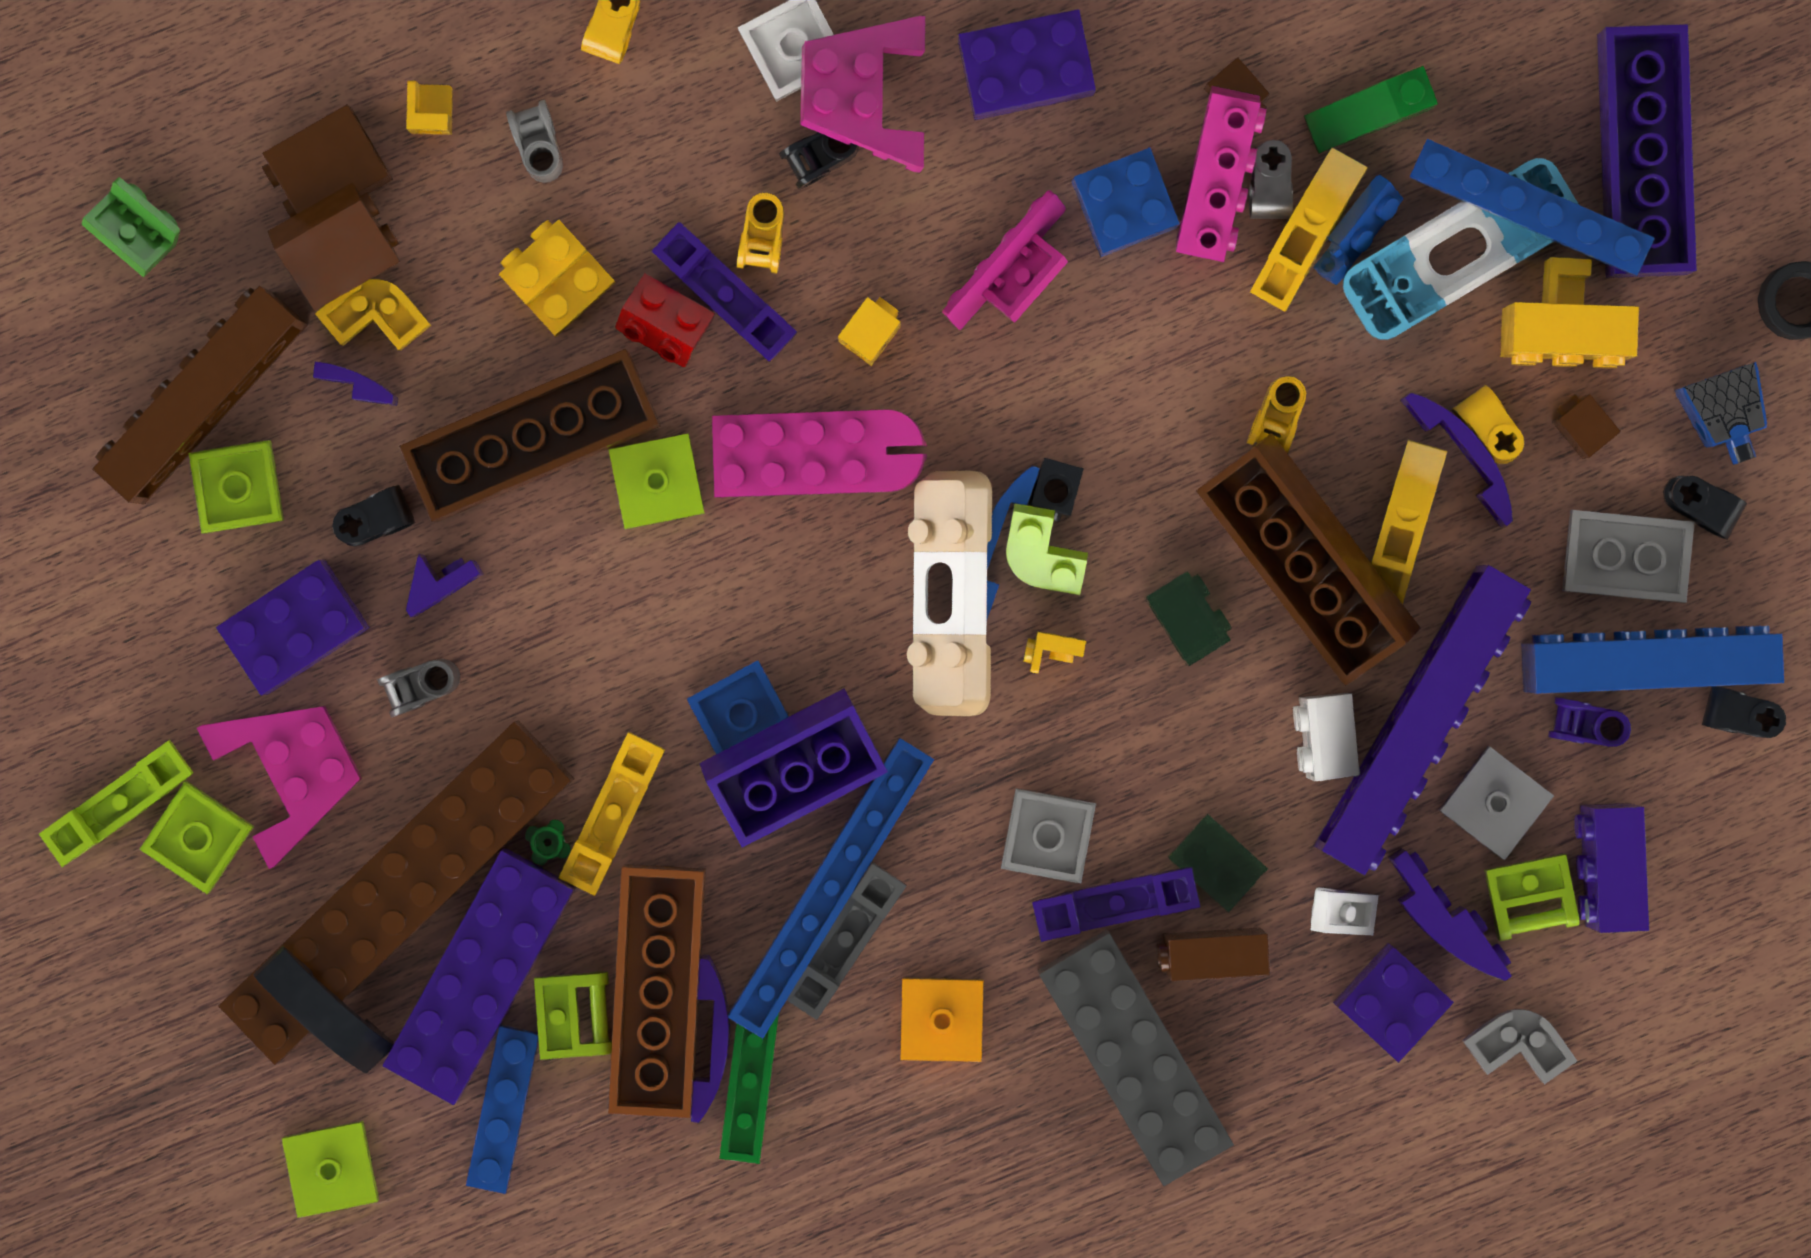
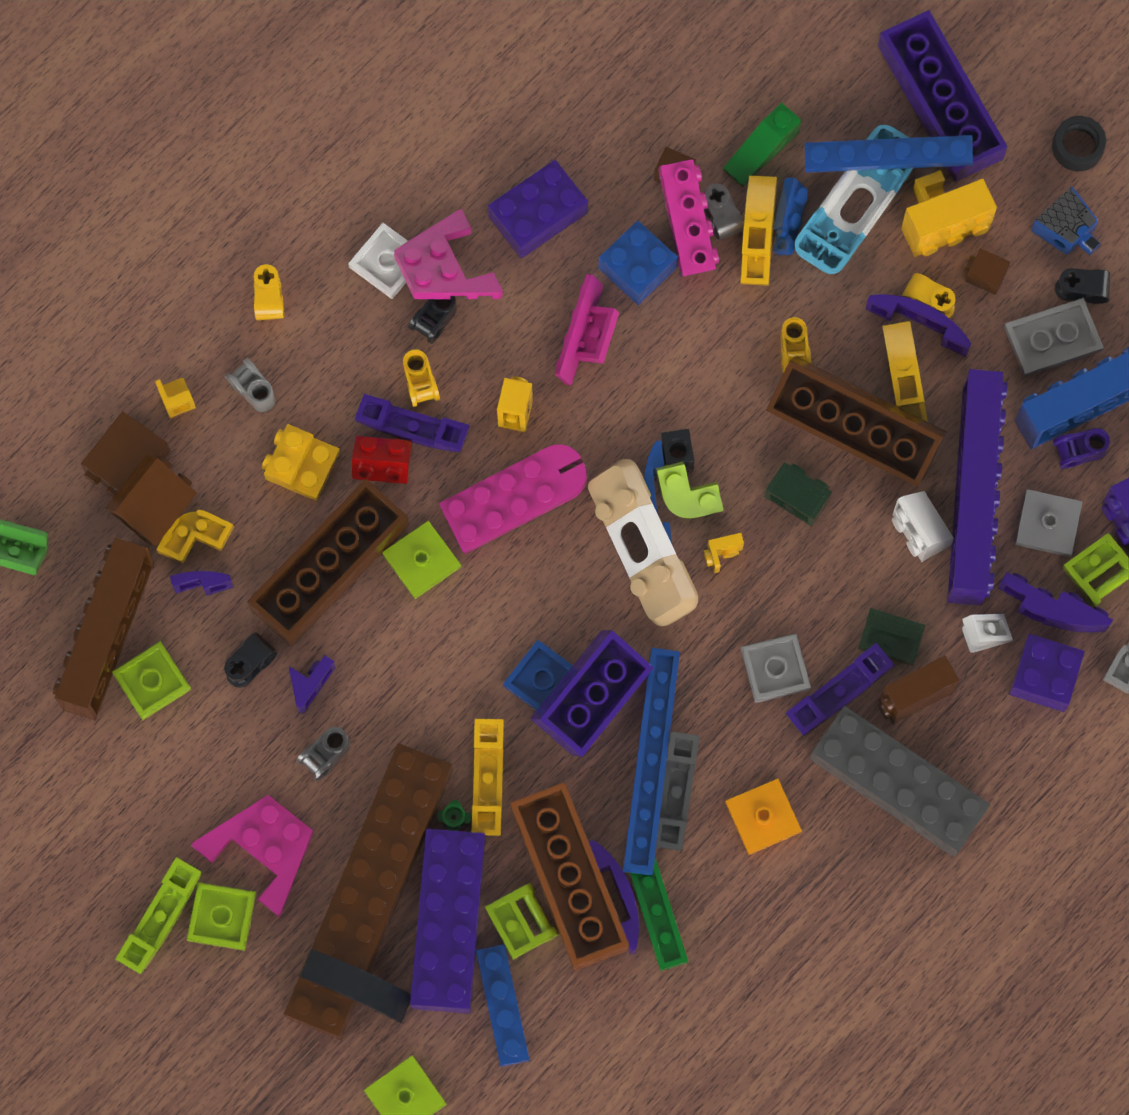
camera: 25 degrees left, 15 degrees down
(292, 627) = (227, 751): dark purple brick -> none

